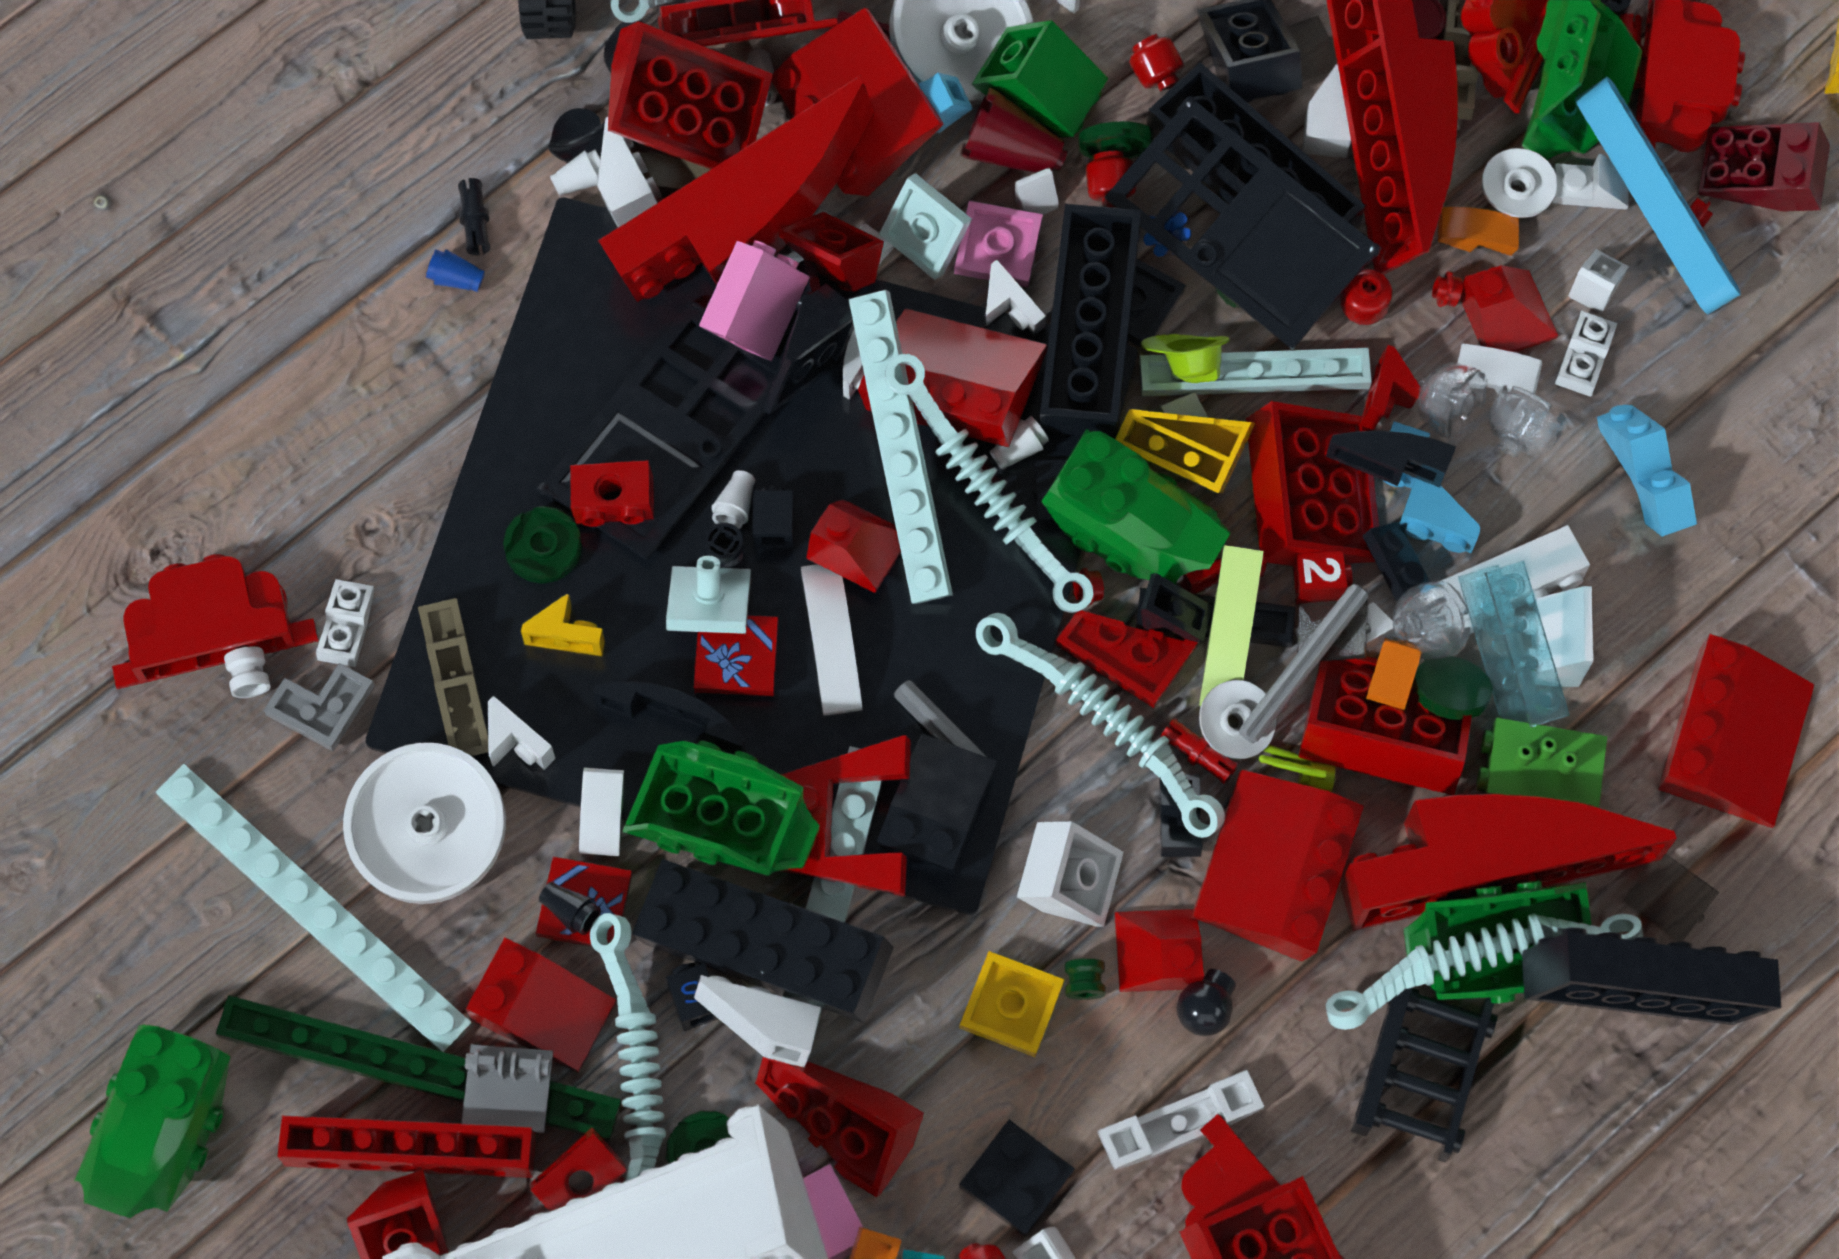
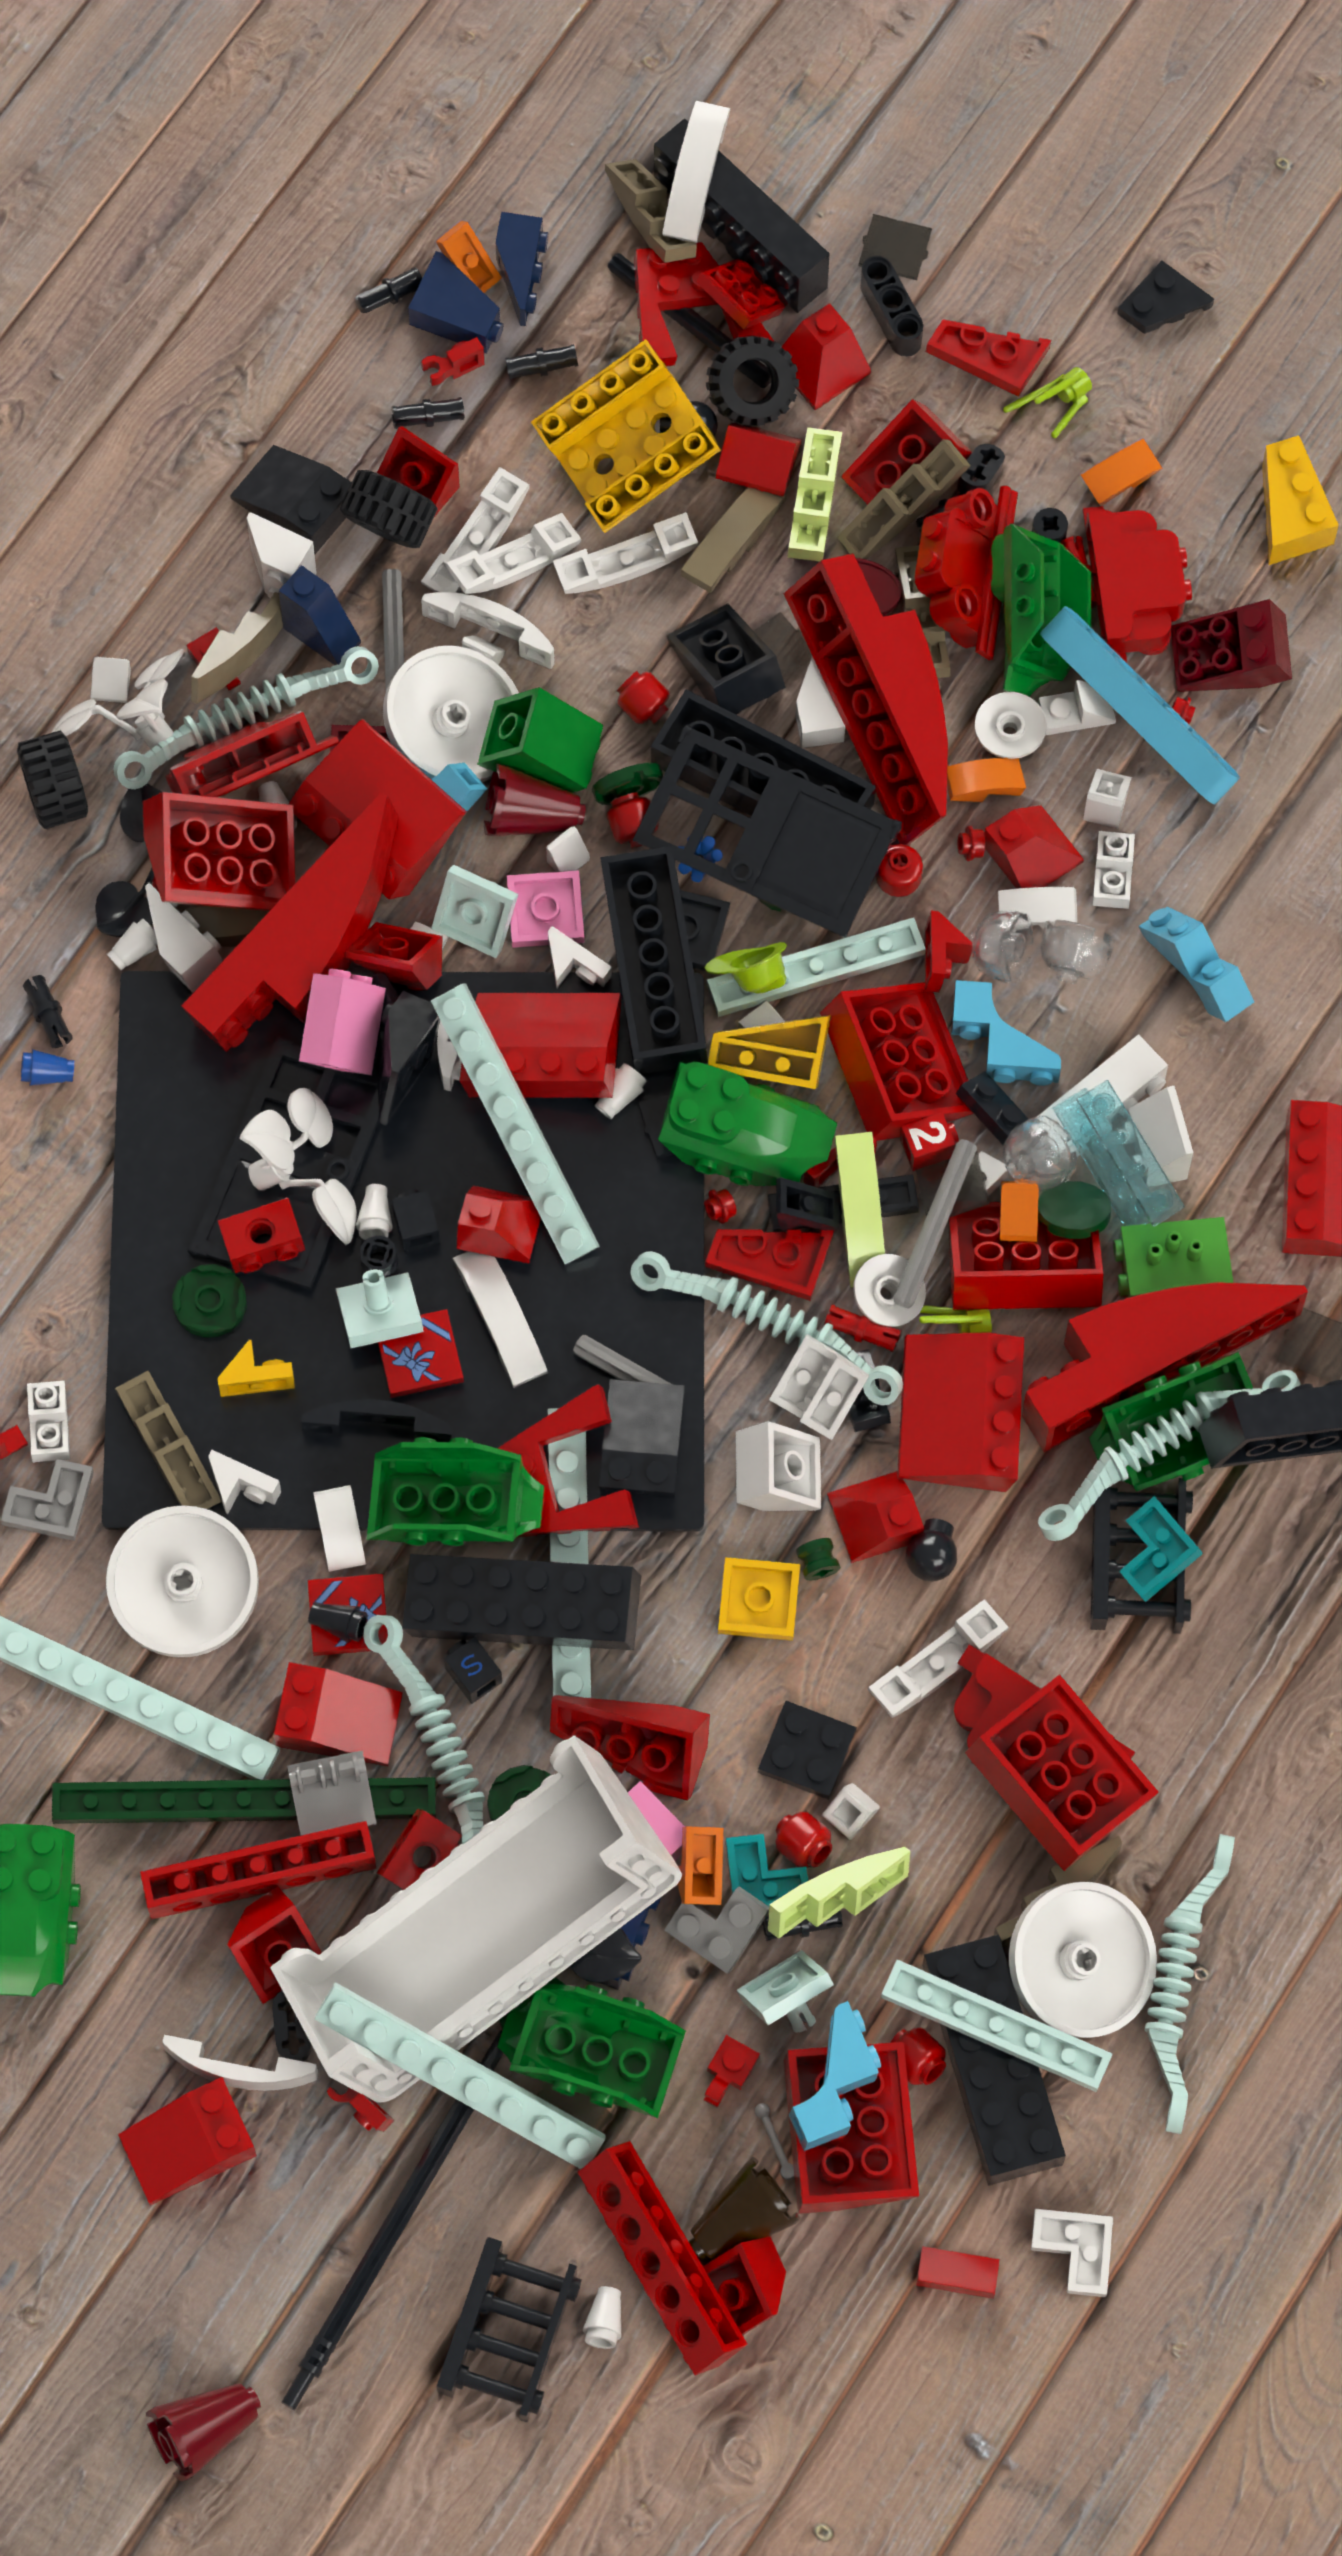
camera: 15 degrees left, 0 degrees up
(641, 395) = (271, 1139): none -> white plant
(769, 1023) = (547, 1671): white slope -> none
(951, 443) = (607, 1143): light aqua piece -> none
(1137, 799) = (819, 1386): none -> white slope
(1392, 454) = (963, 1011): black slope -> none
(1453, 1074) = (1167, 1551): none -> teal plate

